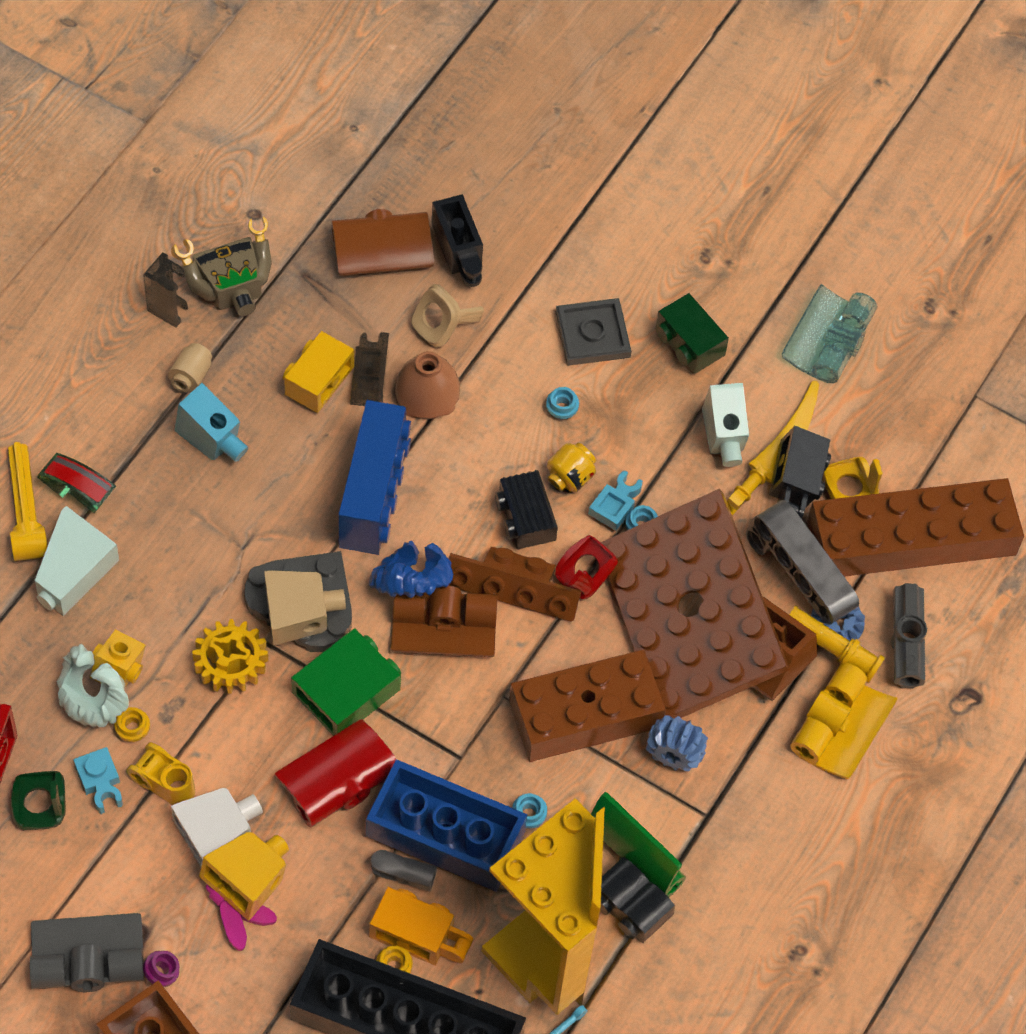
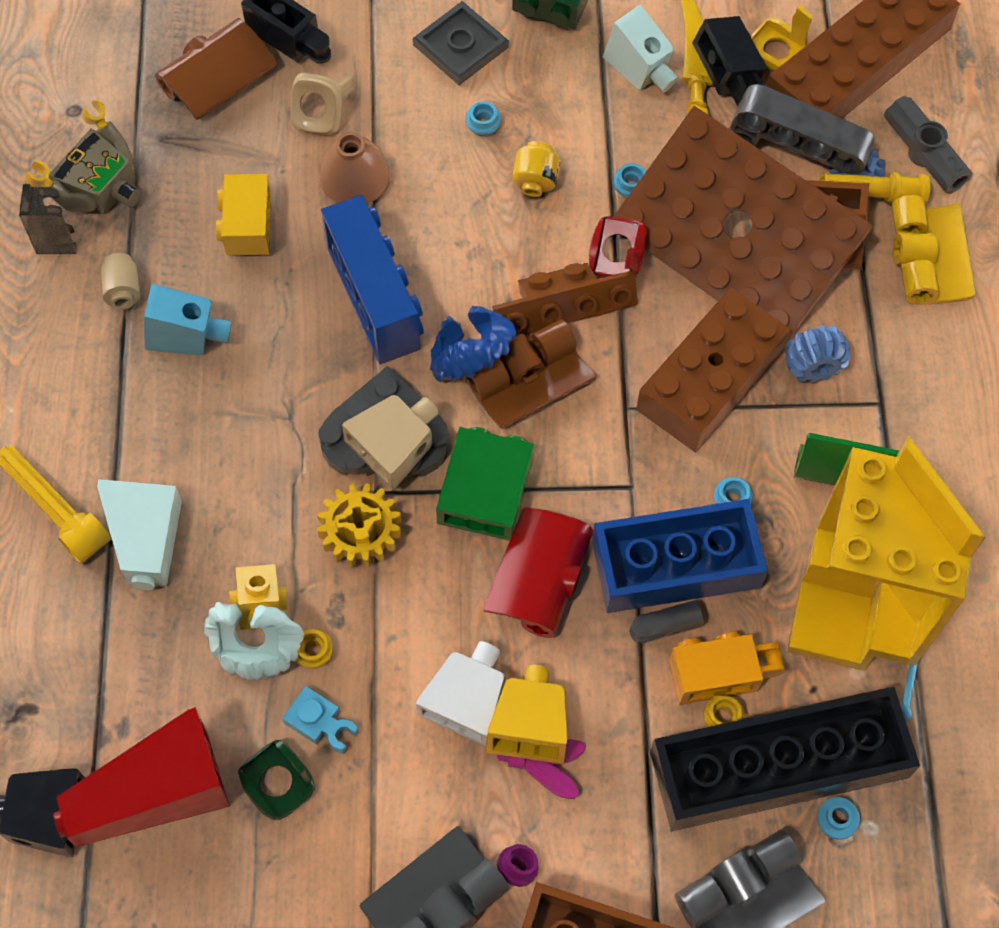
camera: 30 degrees left, 5 degrees up
(73, 477) = (77, 450): slope -> none
(159, 770) = (376, 677): yellow piece -> none
(370, 370) = (292, 188): clear smoke hinge -> none
(527, 510) = (526, 229): black brick -> none
(615, 503) = (596, 178): medium azure plate -> none

